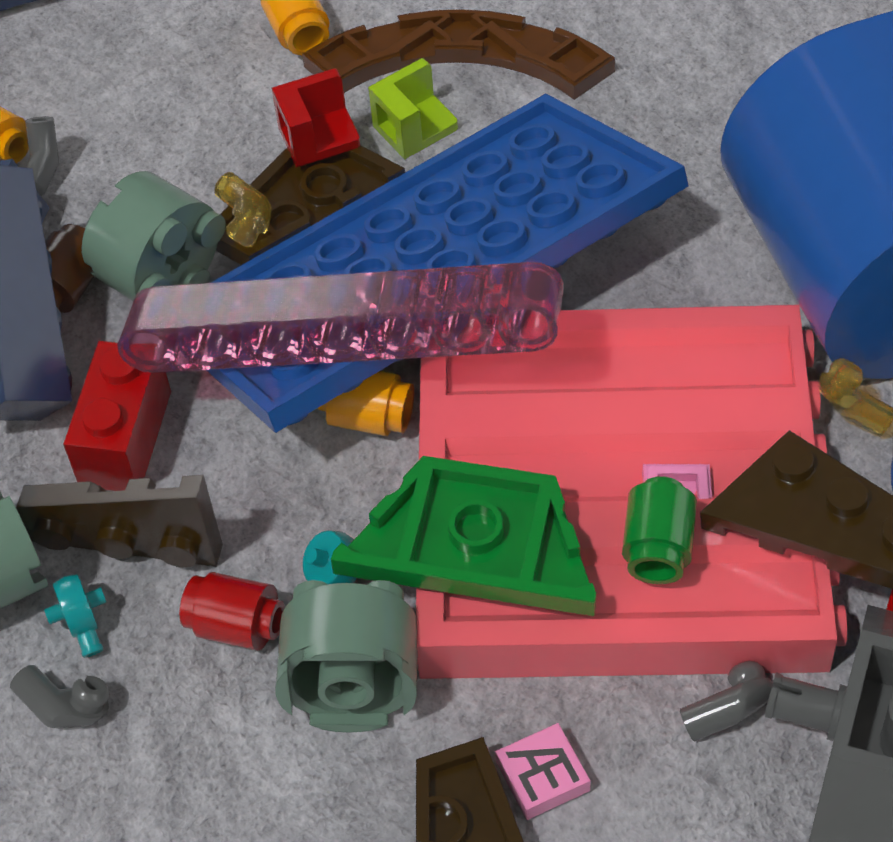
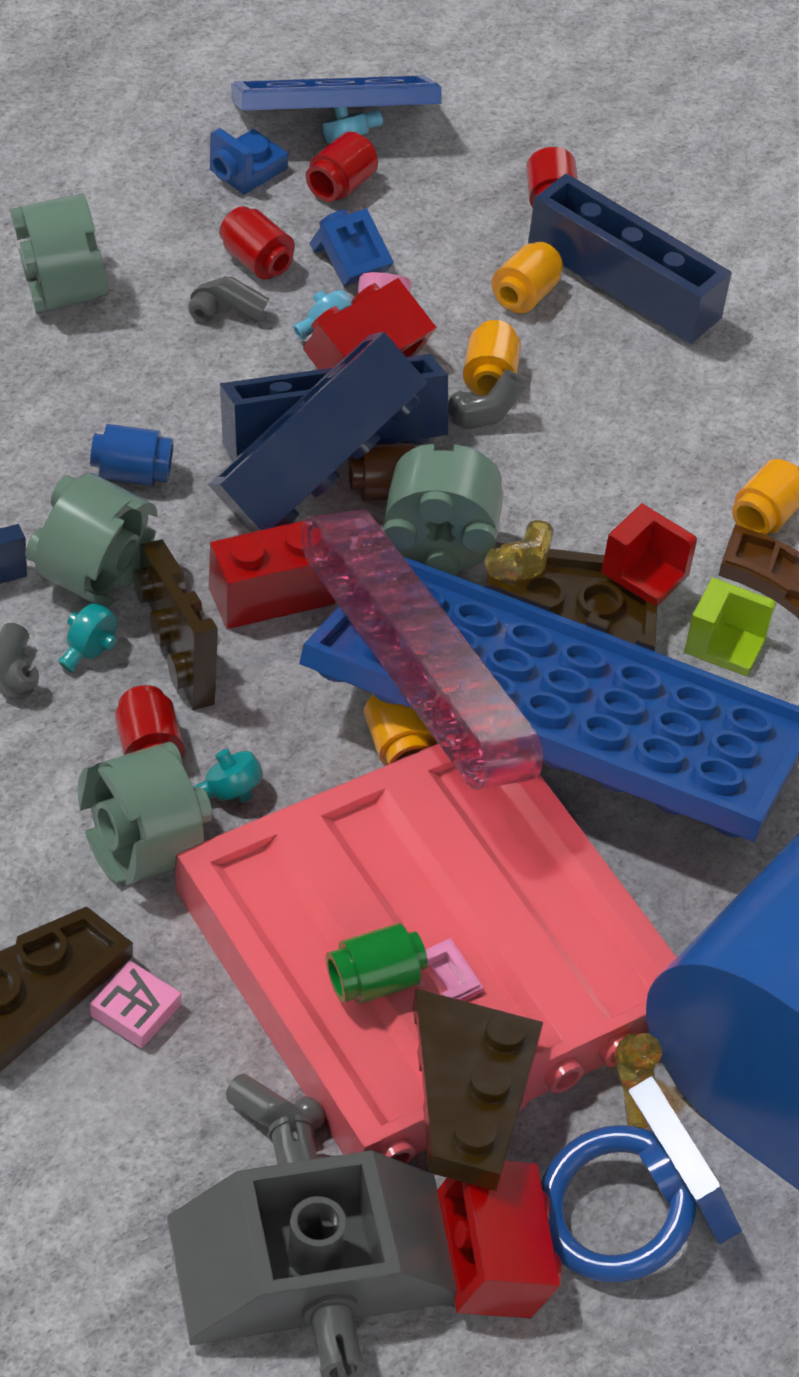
camera: 50 degrees right, 5 degrees down
(474, 536) = (292, 842): green wing -> none

